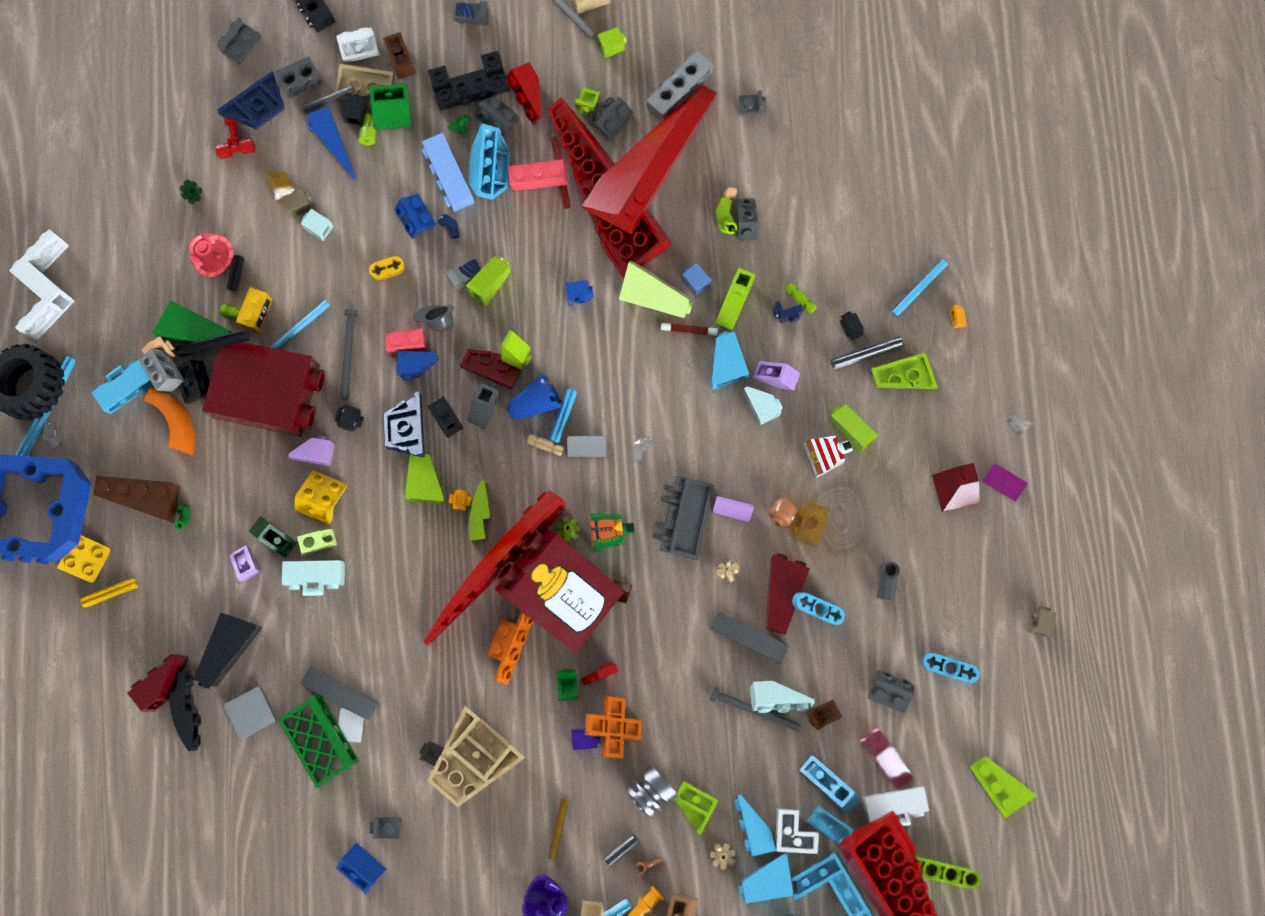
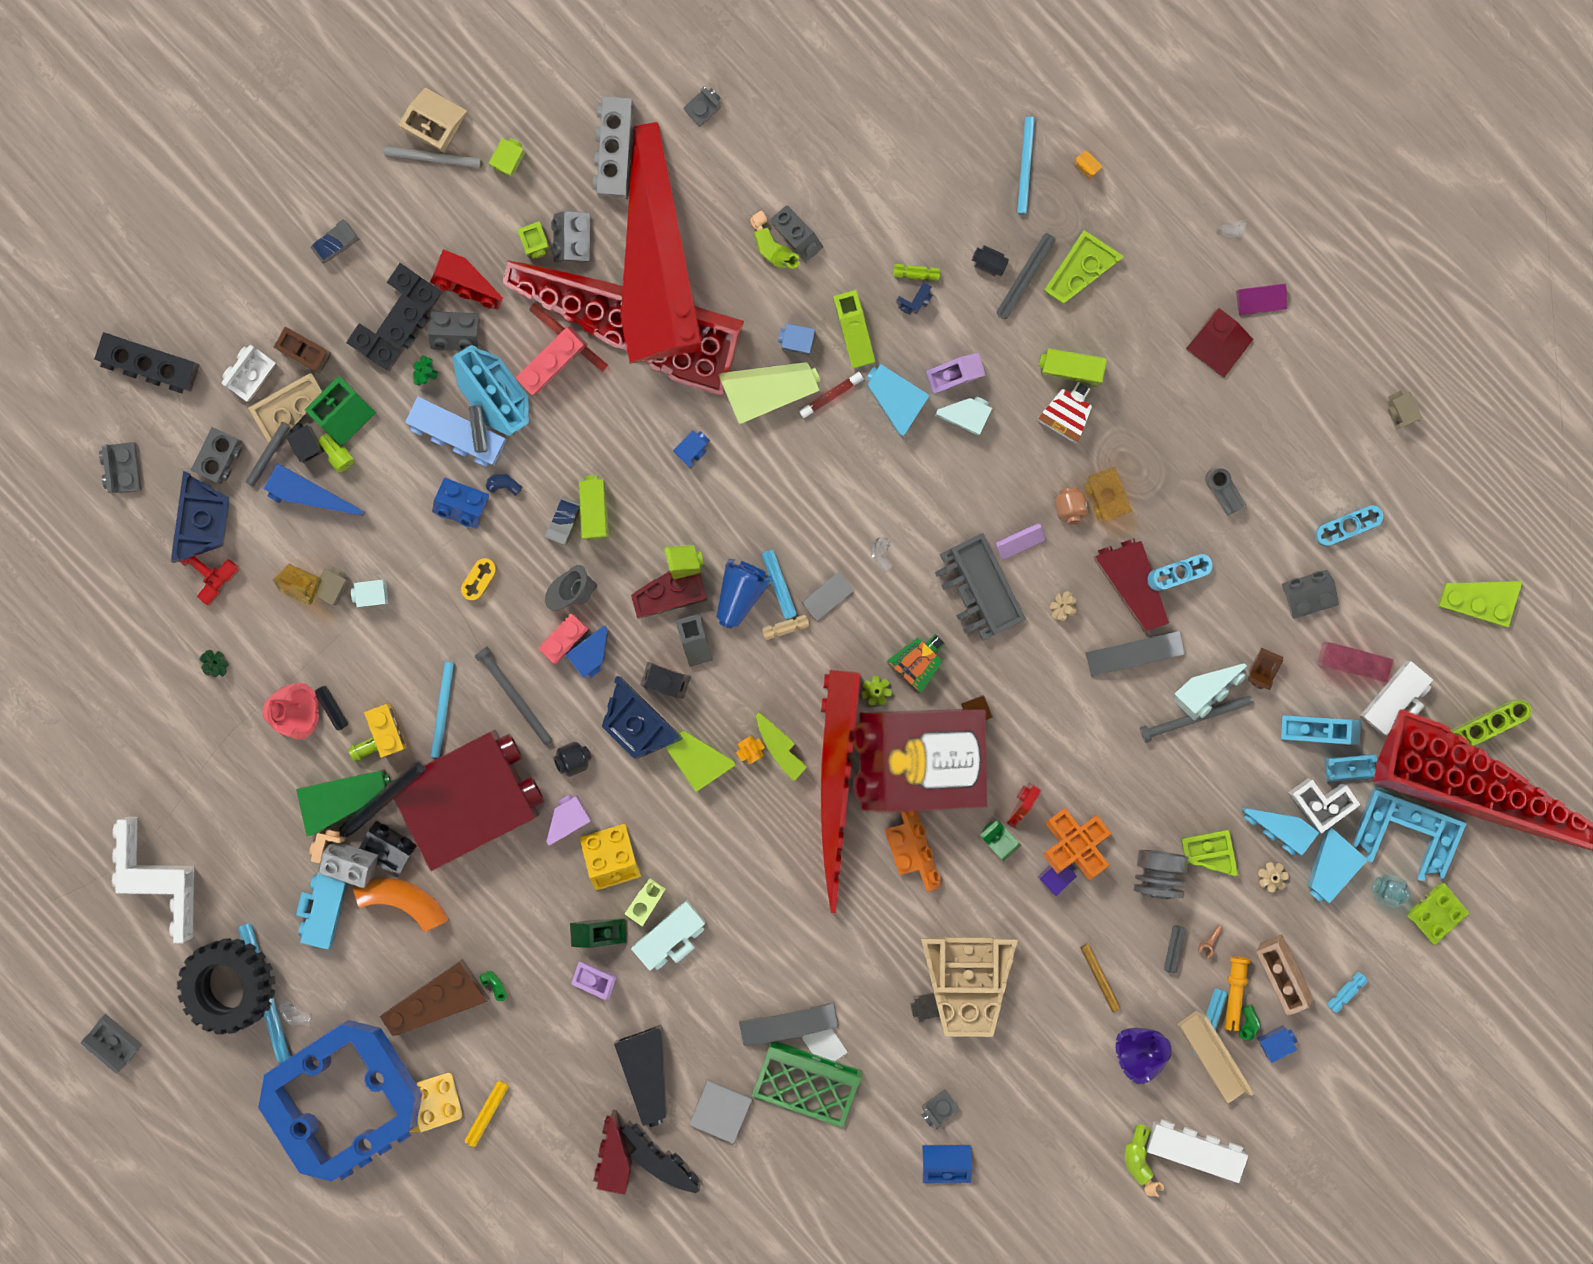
camera: 40 degrees left, 10 degrees up
(460, 177) = (478, 428): none -> dark grey axle

